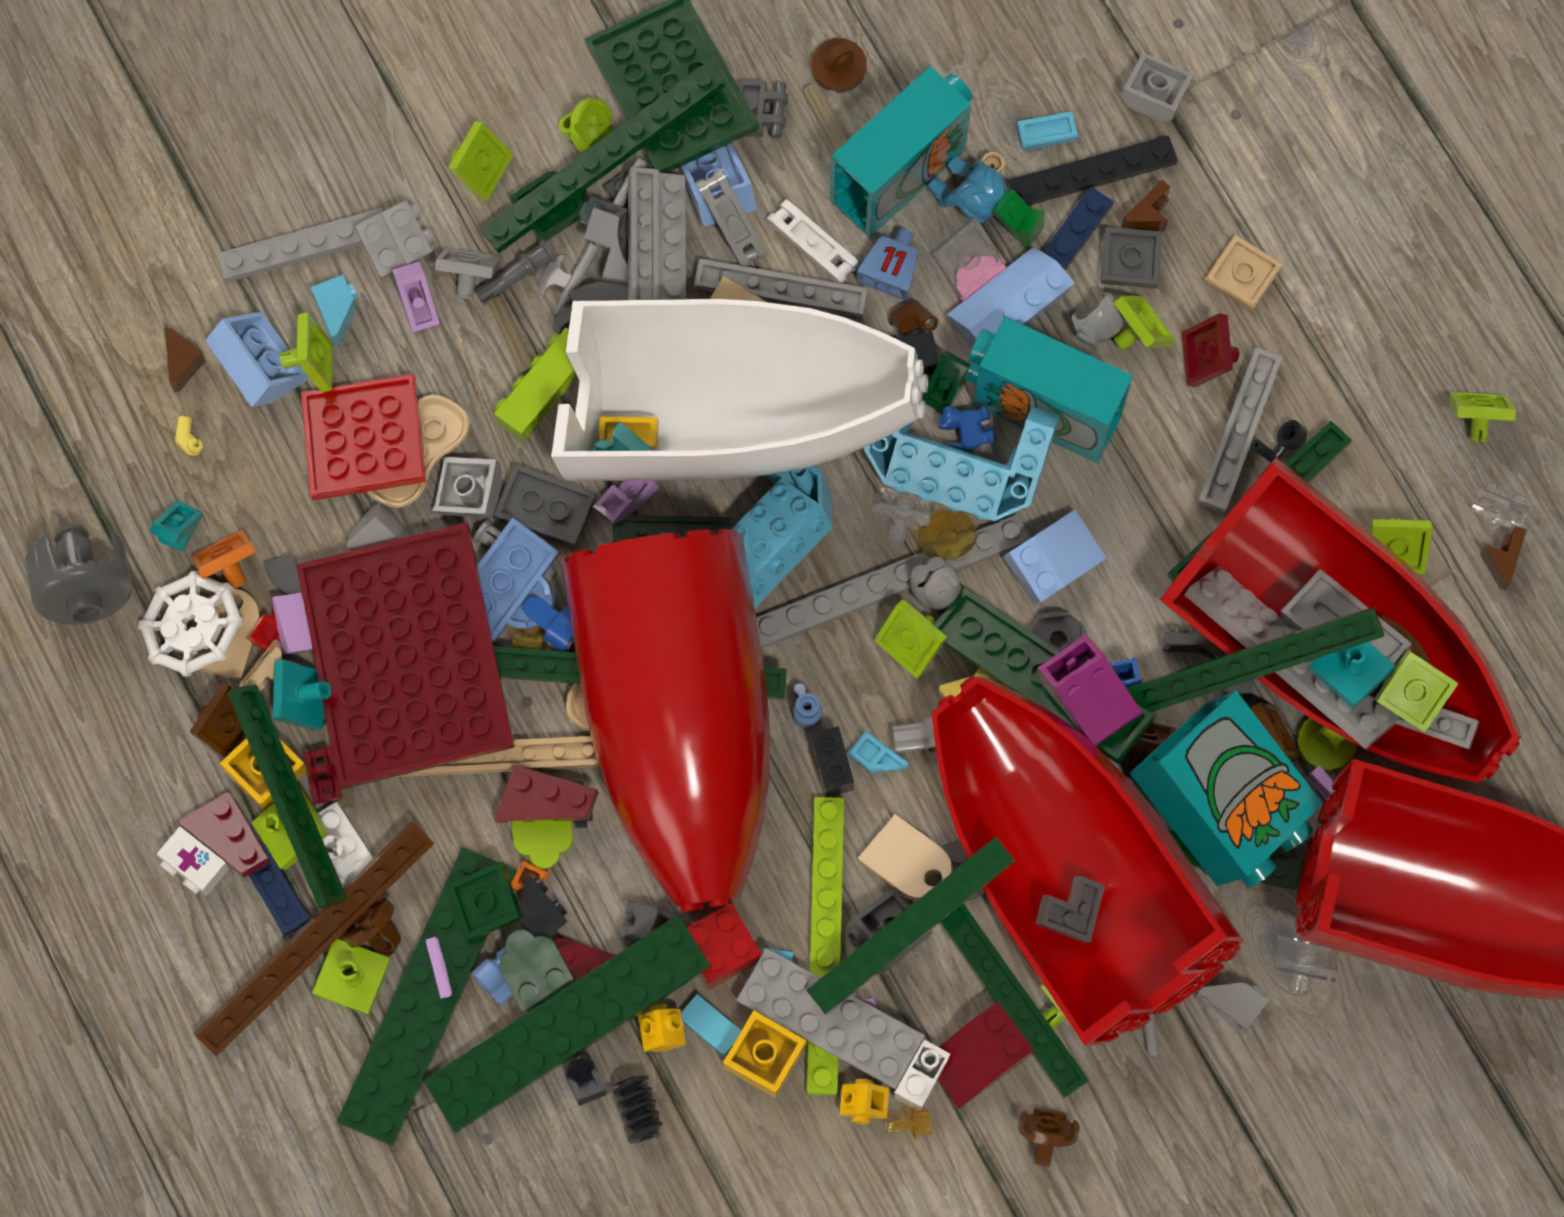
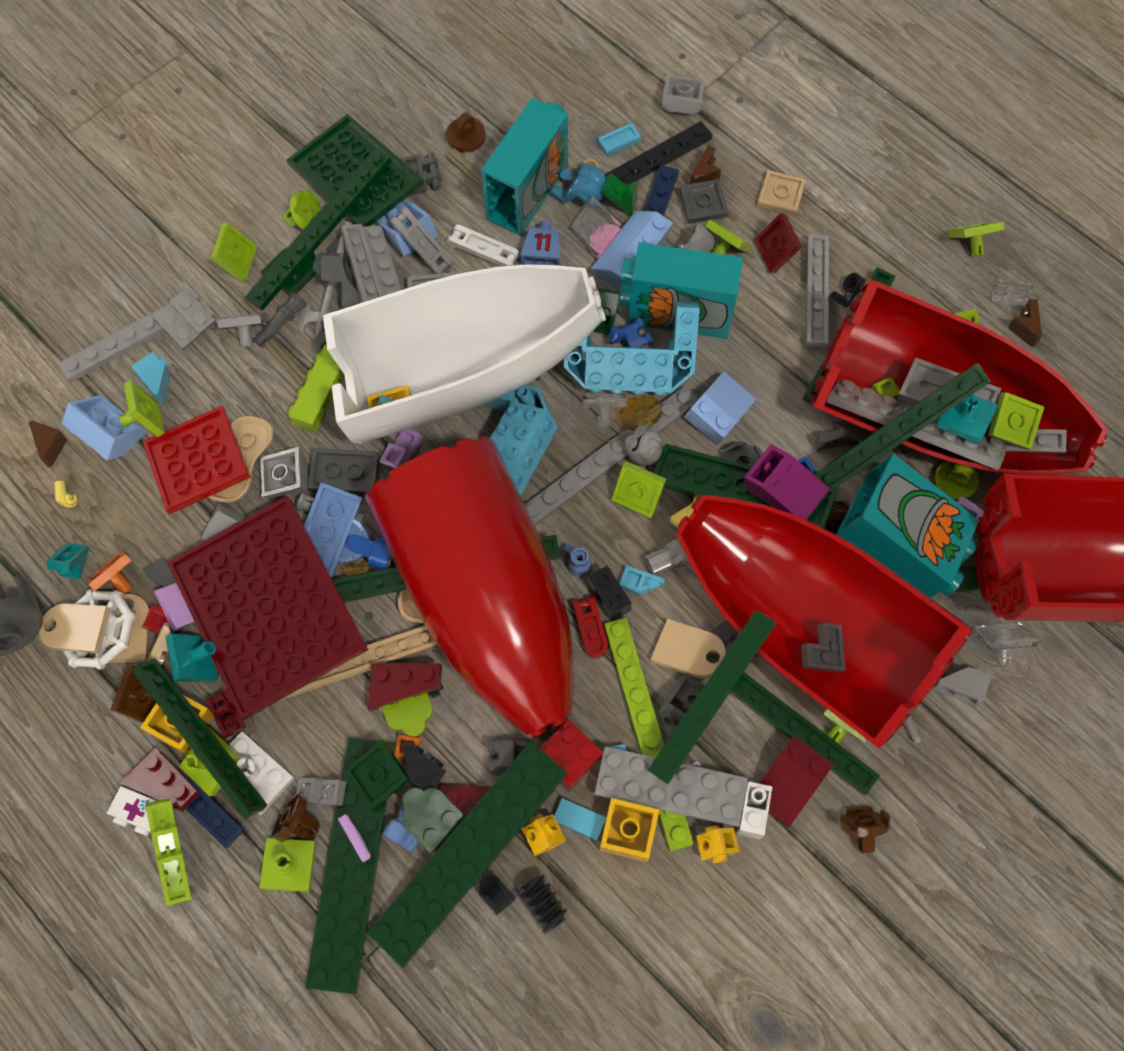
camera: 15 degrees left, 5 degrees down
(169, 616) = (77, 627): none -> tan tile
(217, 919) = (168, 851): none -> lime slope
(313, 939) = (247, 848): reddish brown plate -> none
(414, 902) = (321, 791): none -> light grey slope
(415, 296) = (211, 354): lavender slope -> none
(796, 797) = (590, 627): none -> red plate
(918, 1123) = (763, 848): clear yellow piece -> none
(1276, 595) = (886, 388): none -> lime tile

